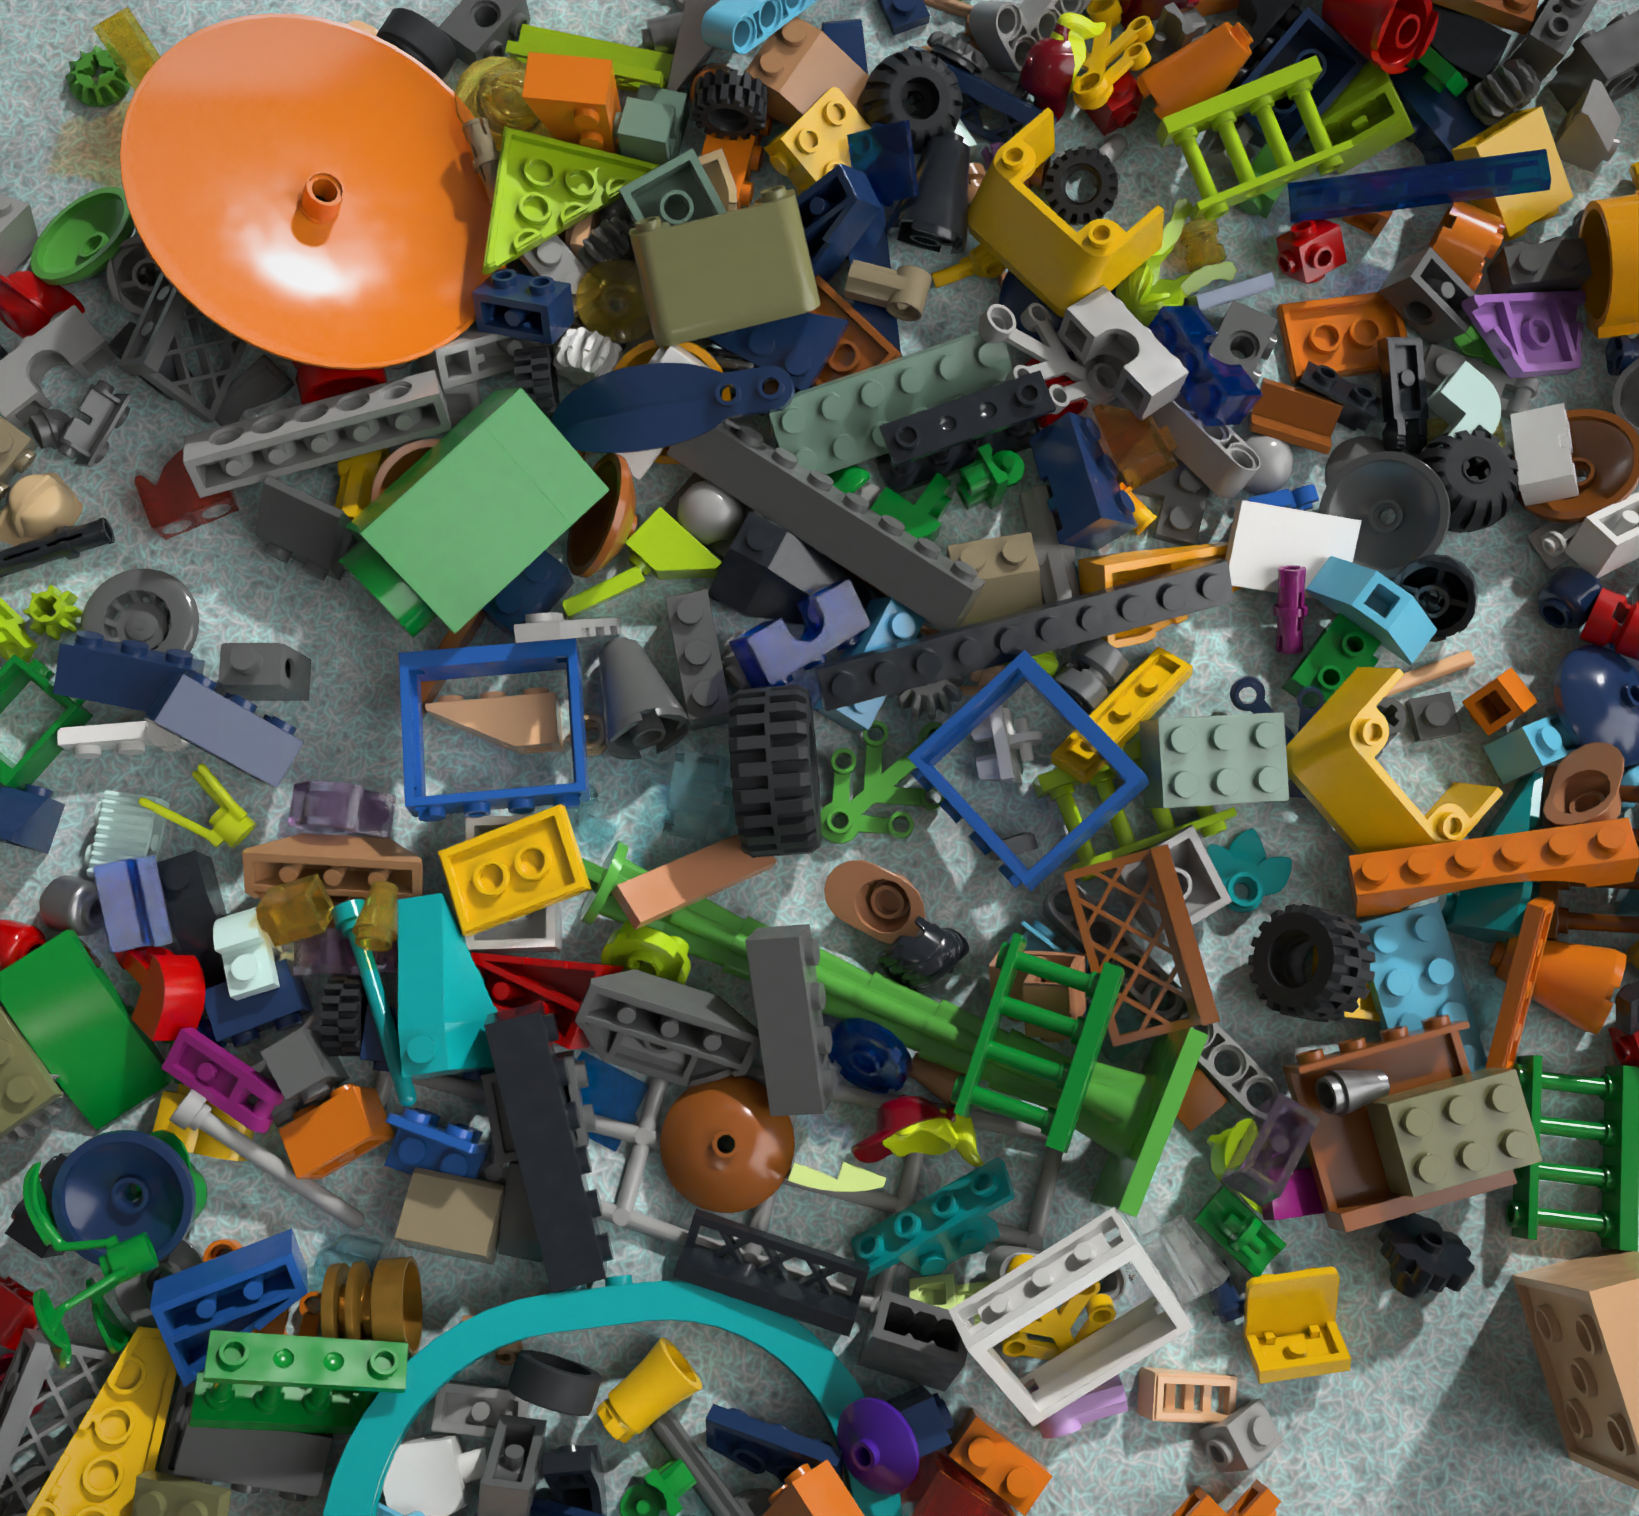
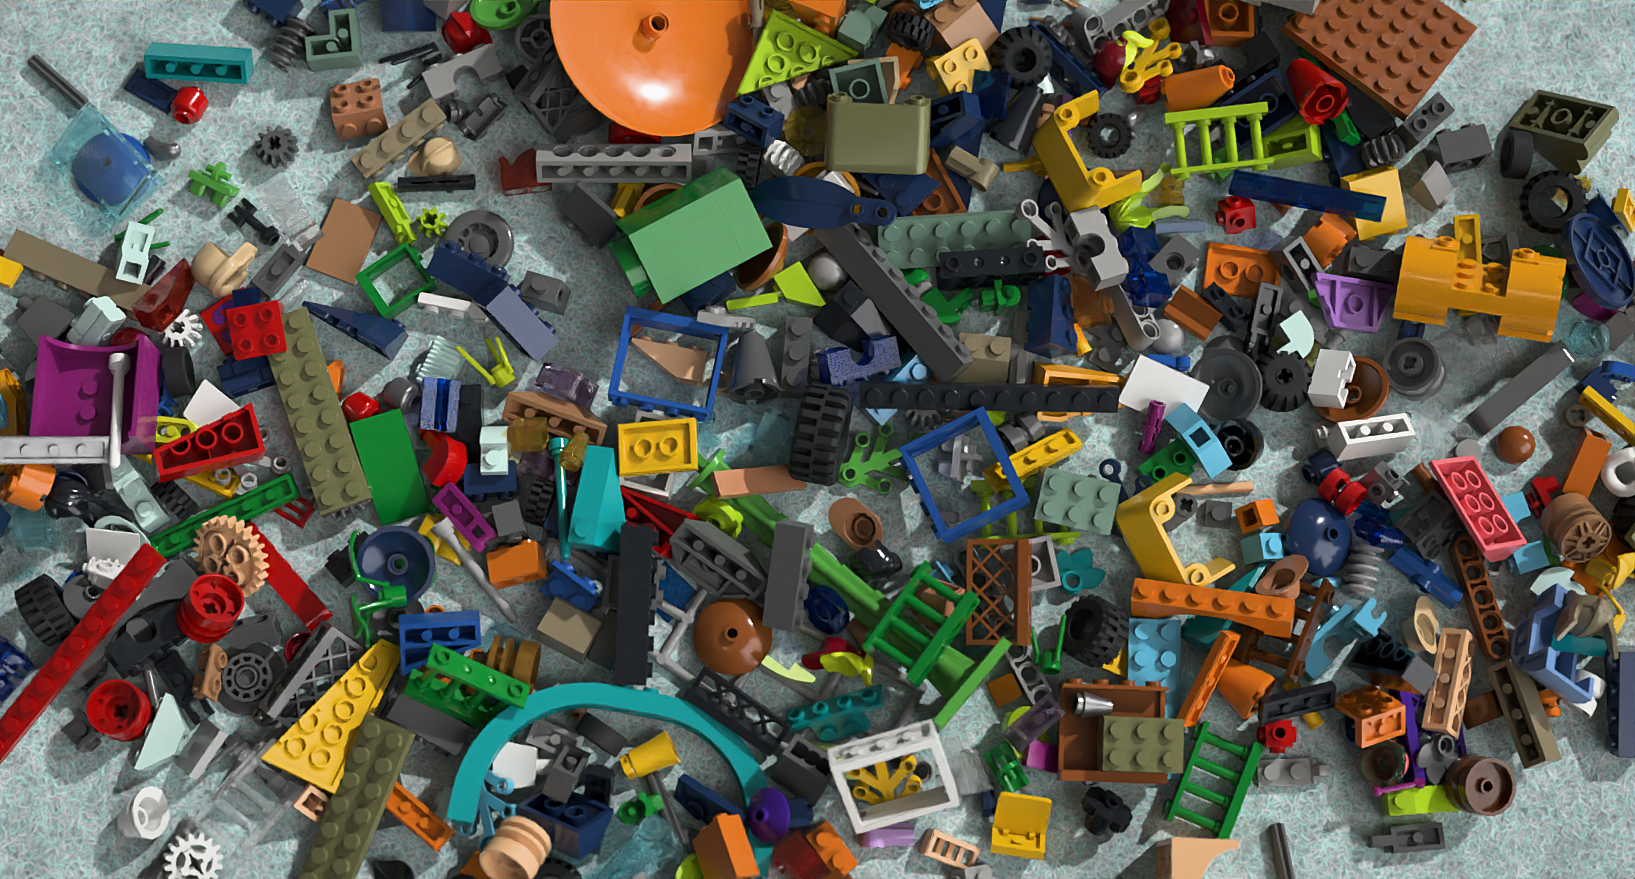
camera: 15 degrees right, 0 degrees up
(1257, 1029) = (1050, 658): none -> green plant

